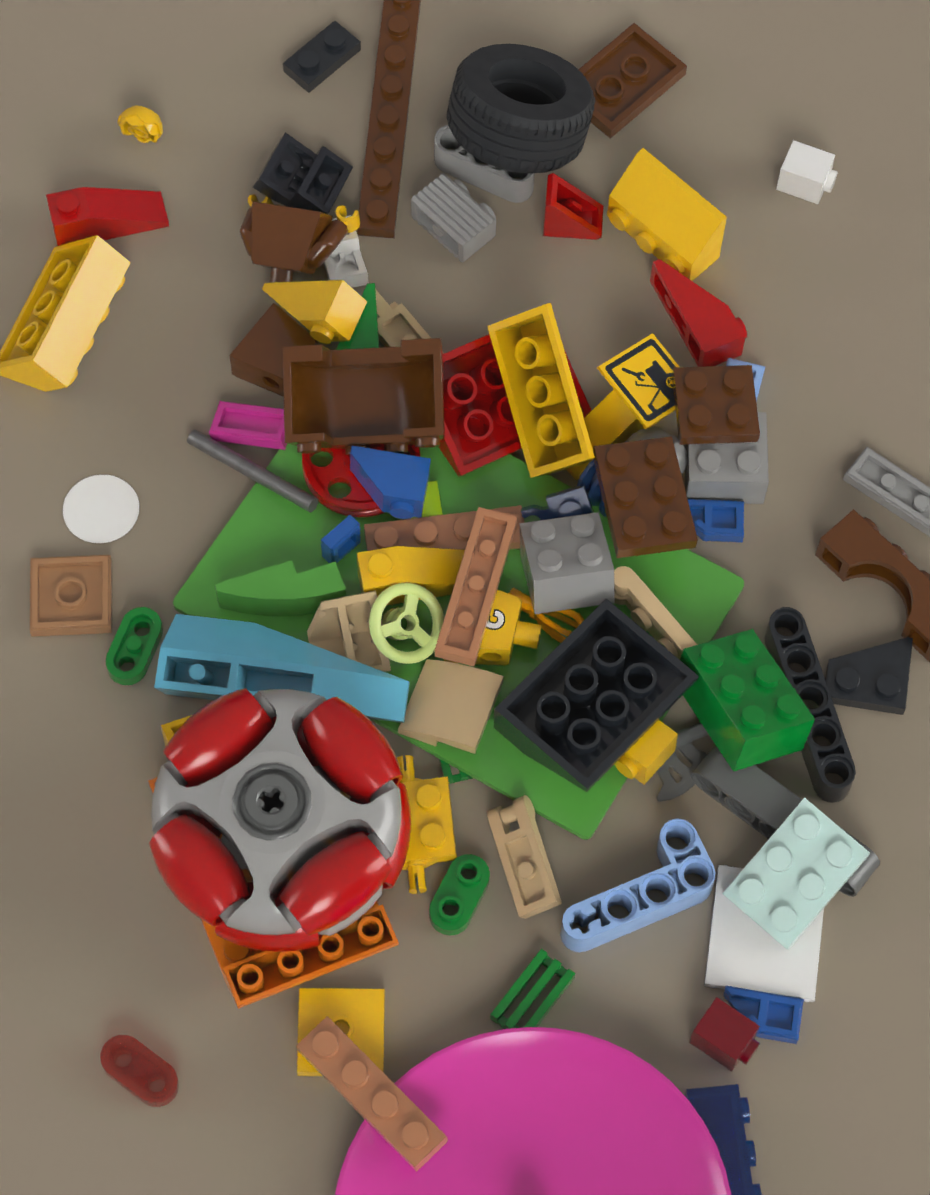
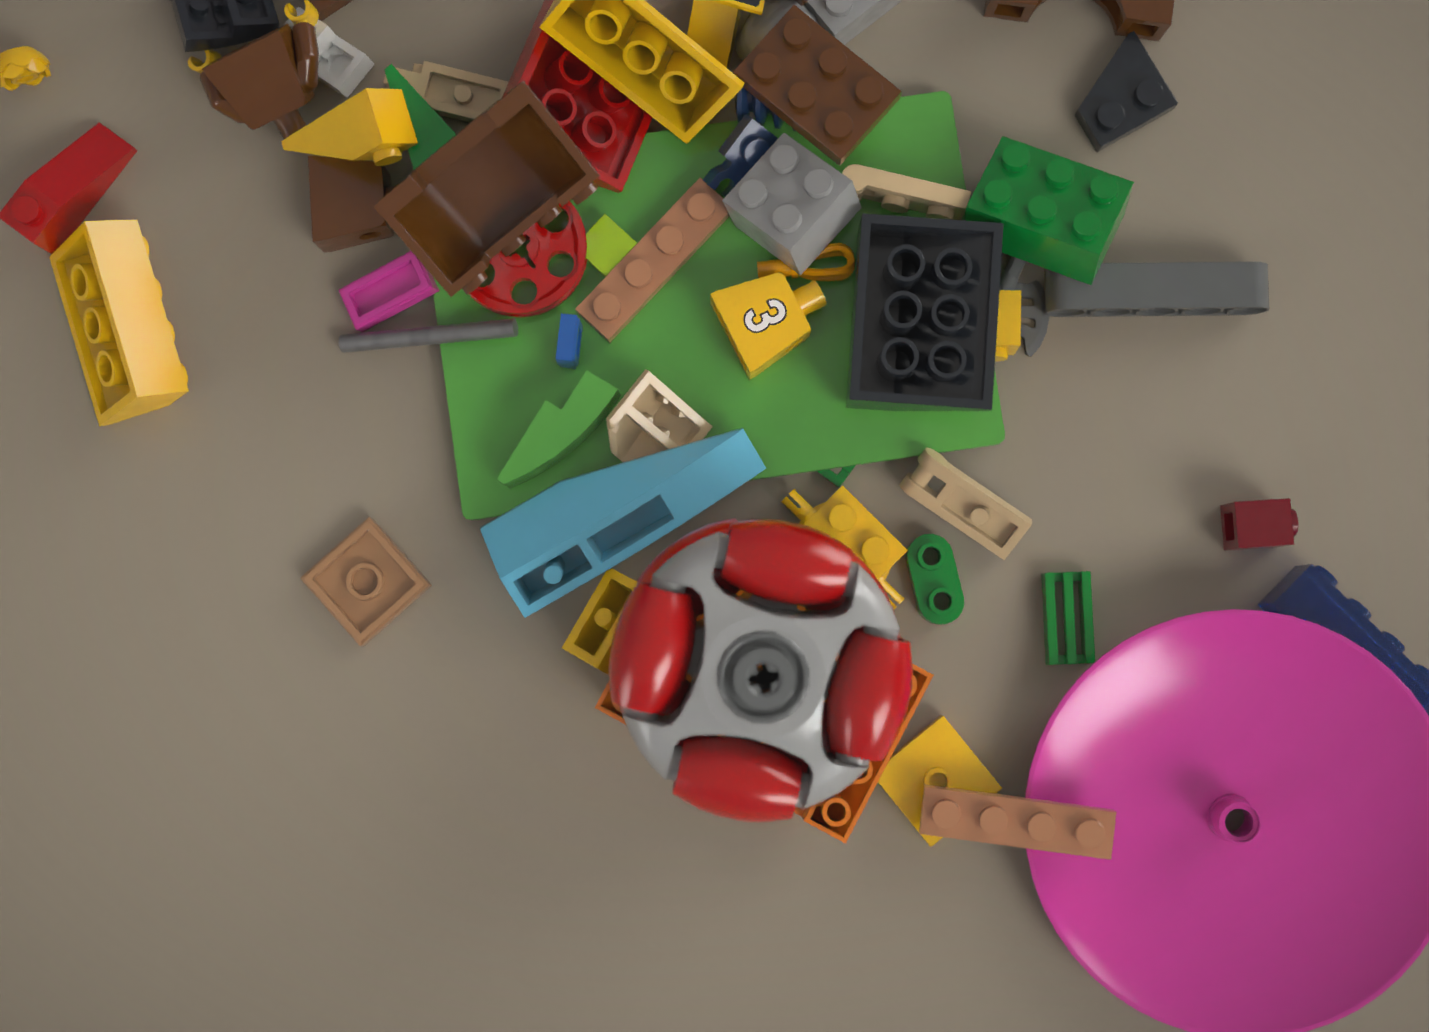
camera: 35 degrees left, 20 degrees up
(101, 509) = (319, 477): white sticker -> none
(133, 648) = (465, 586): green plate -> none
(140, 1072) = (799, 957): clear red plate -> none
(392, 480) = (572, 248): blue slope -> none
(392, 618) = (675, 380): yellowish green piece -> none
(427, 567) = (662, 318): yellow slope -> none
(451, 704) = (794, 417): tan slope -> none
(476, 587) = (737, 294): nougat plate -> none
(633, 893) = (1086, 461): light blue beam -> none
(718, 519) = (881, 45): blue tile -> none
(750, 958) = (1213, 403): white piece -> none
(775, 1014) = (1272, 474): blue tile -> none
(796, 873) = (1213, 334): light aqua plate -> none
(812, 686) = (1087, 143): black beam -> none

